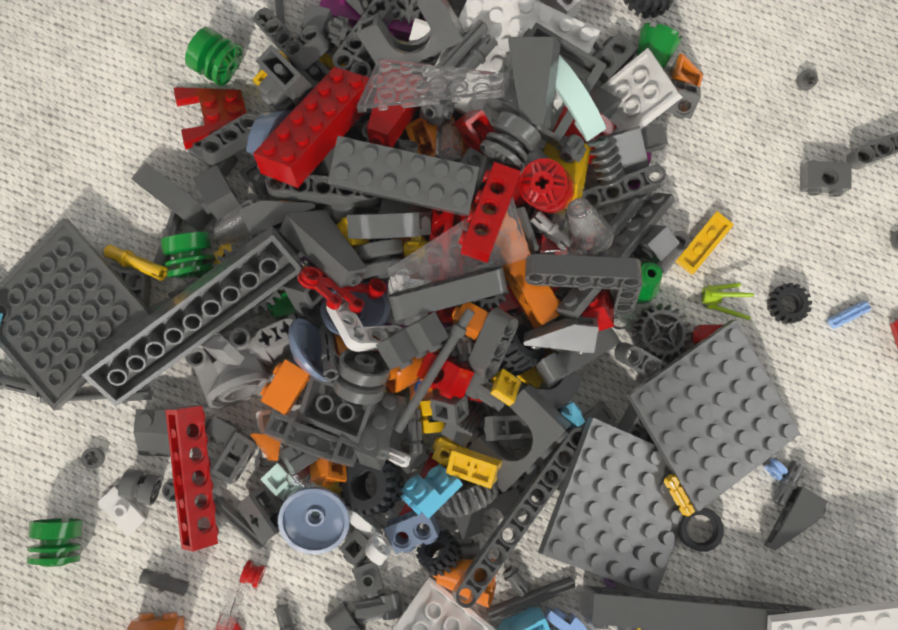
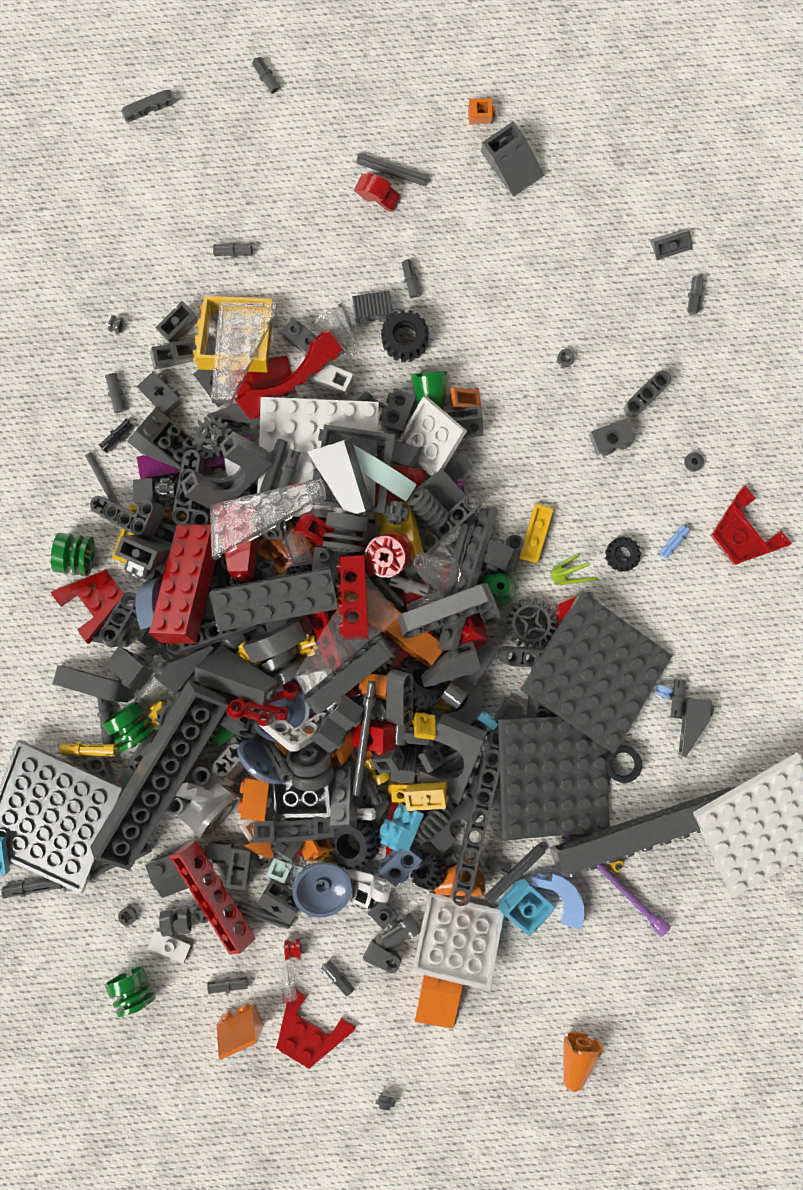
camera: 15 degrees left, 5 degrees up
(679, 495) = (594, 746): yellow axle -> none

